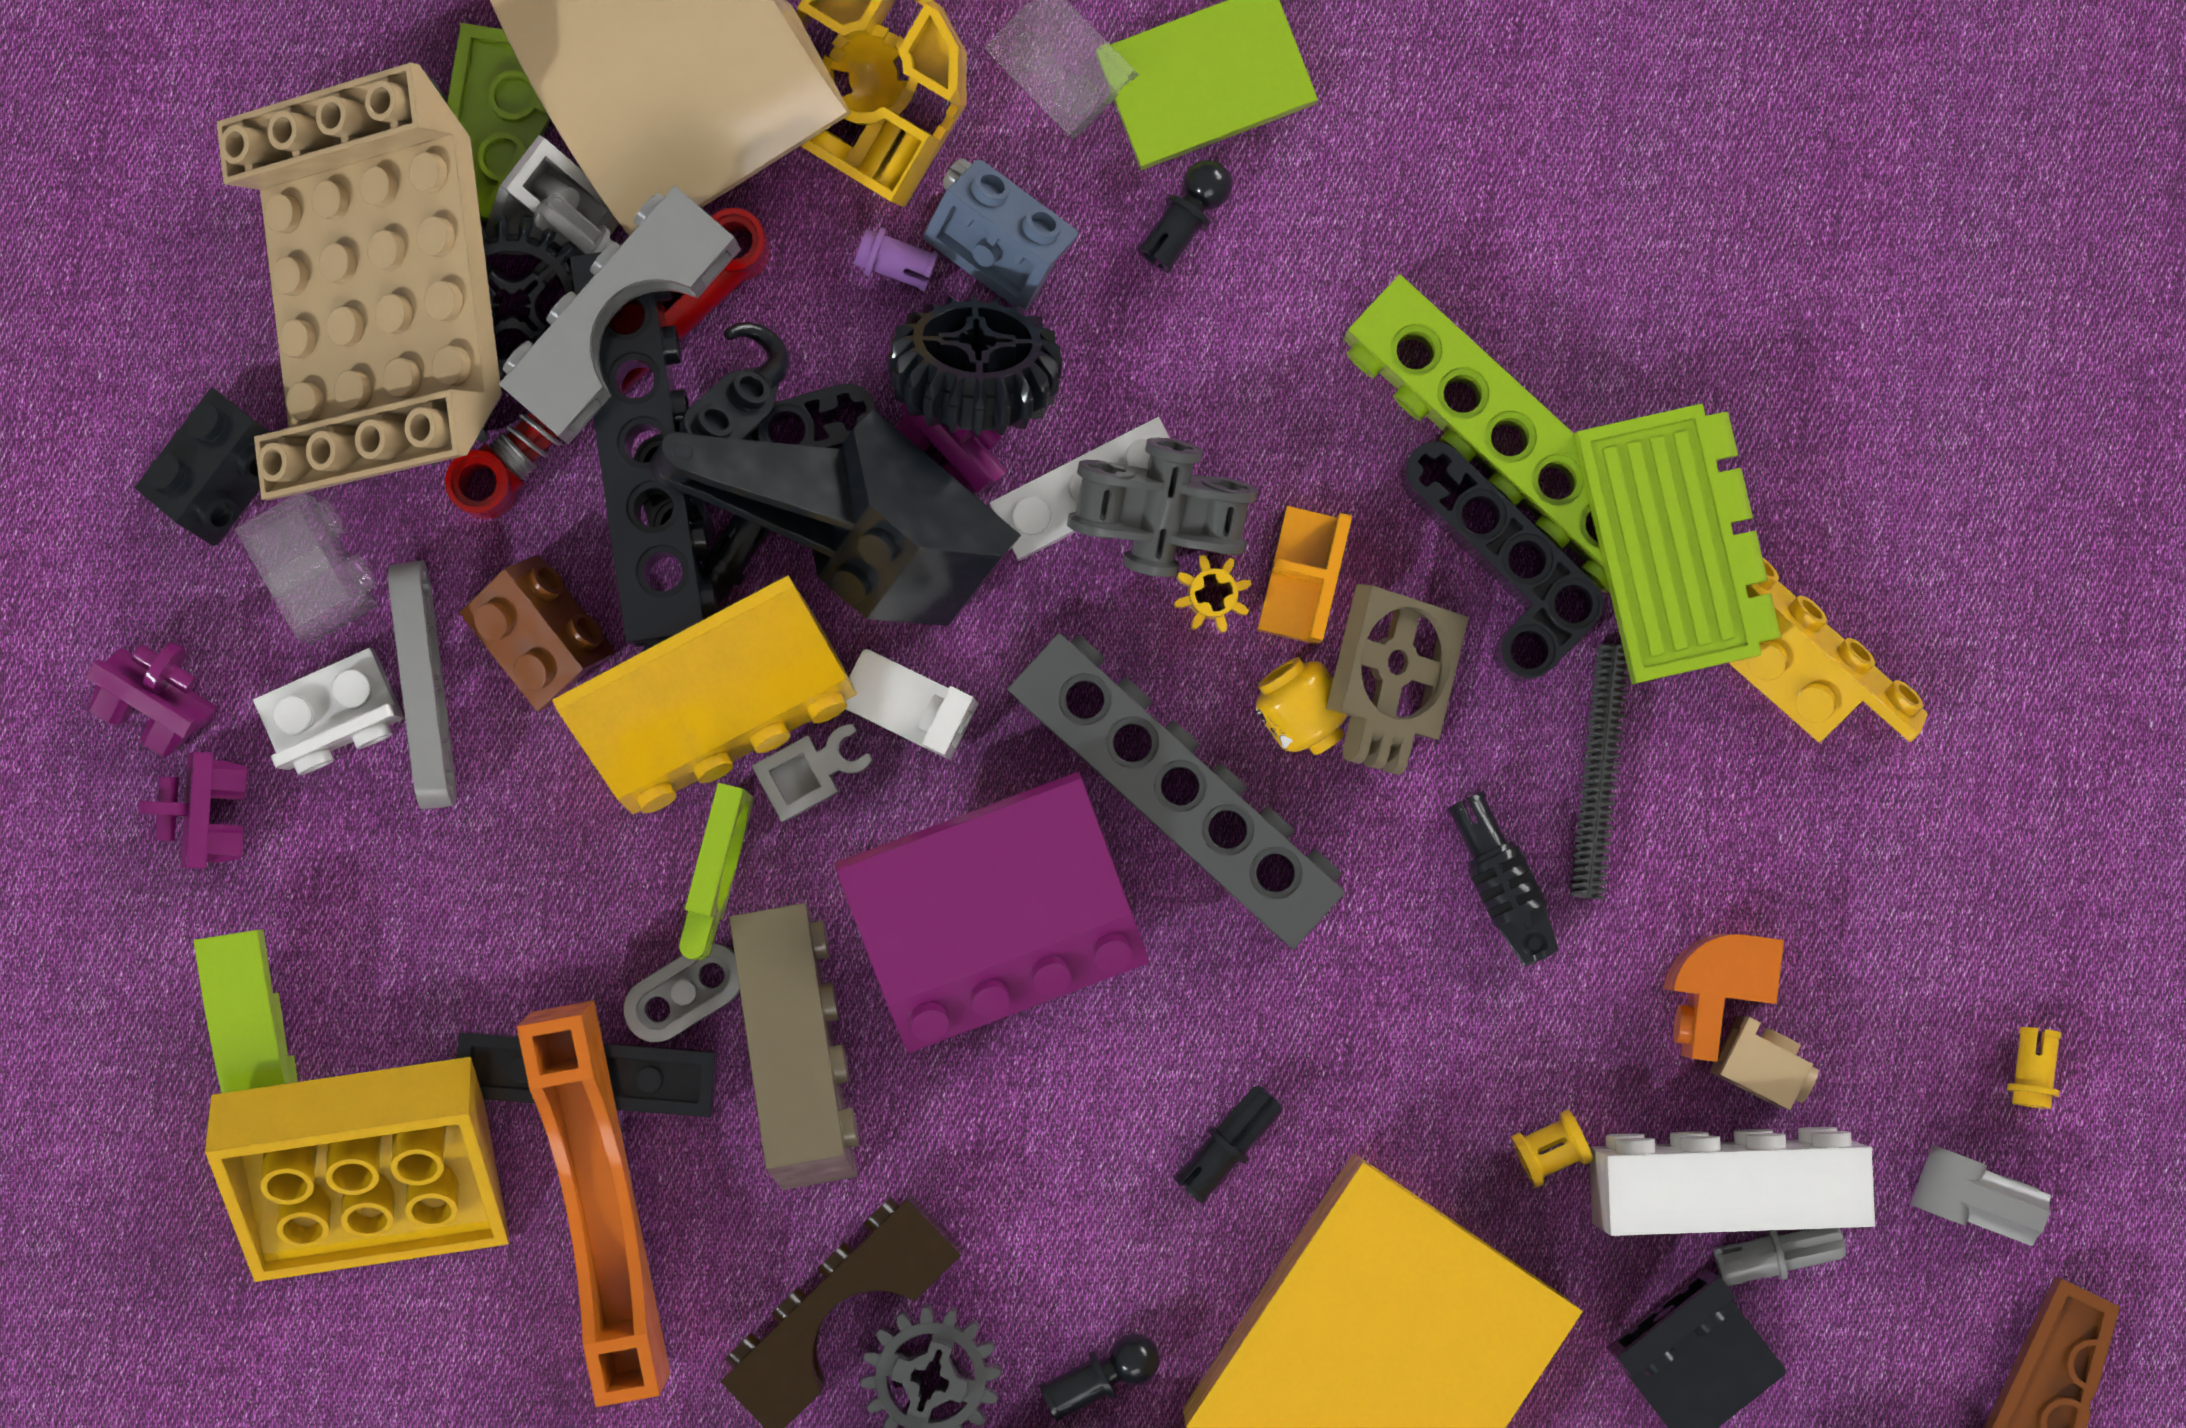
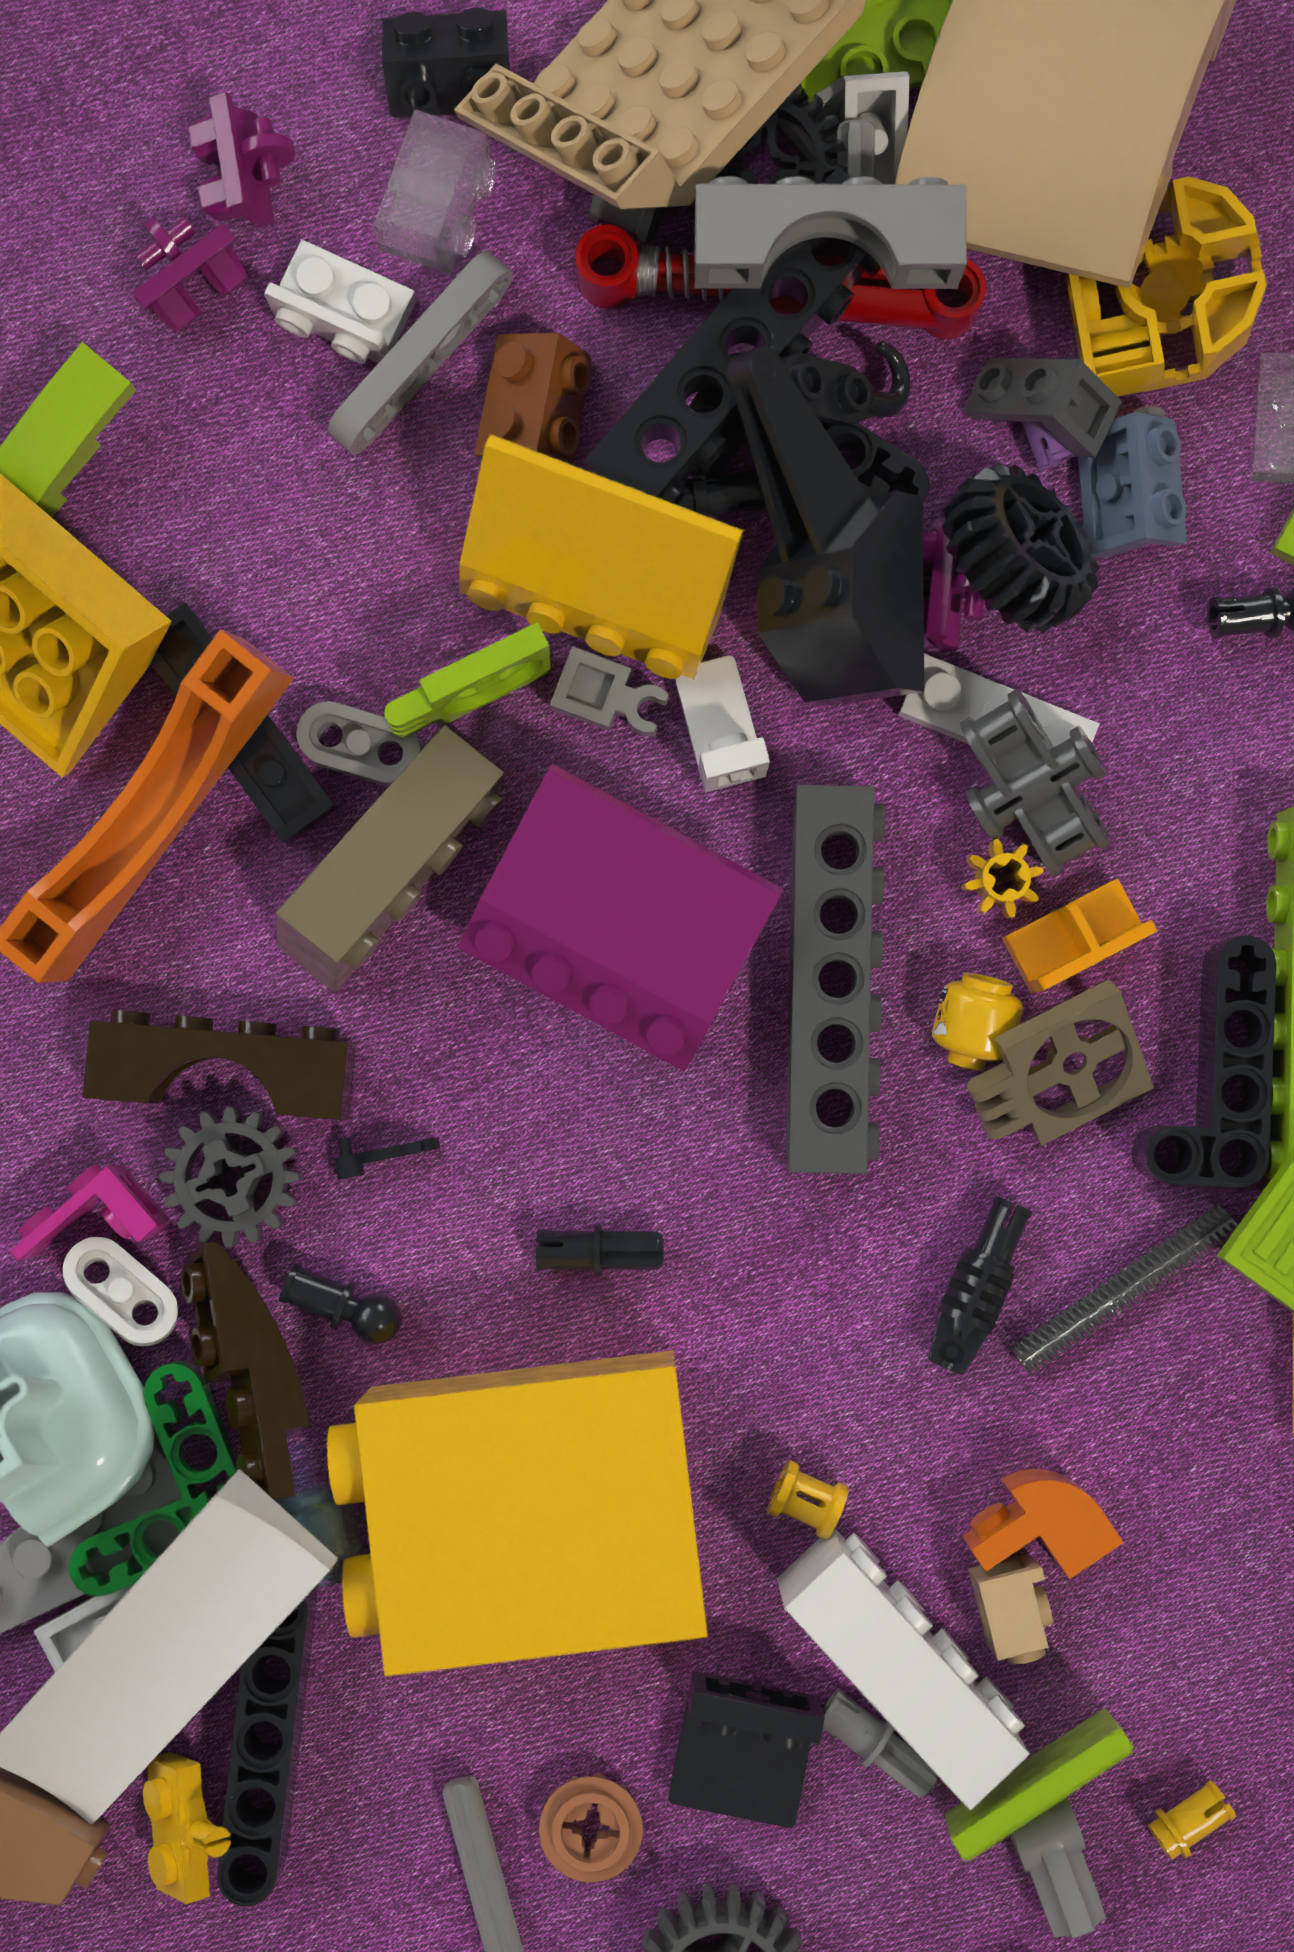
camera: 50 degrees right, 0 degrees up
(875, 240) = (1049, 391): none -> dark grey bracket
(1001, 1276) = (351, 1164): none -> black piece
(1905, 1161) = (1039, 1784): none -> lime tile

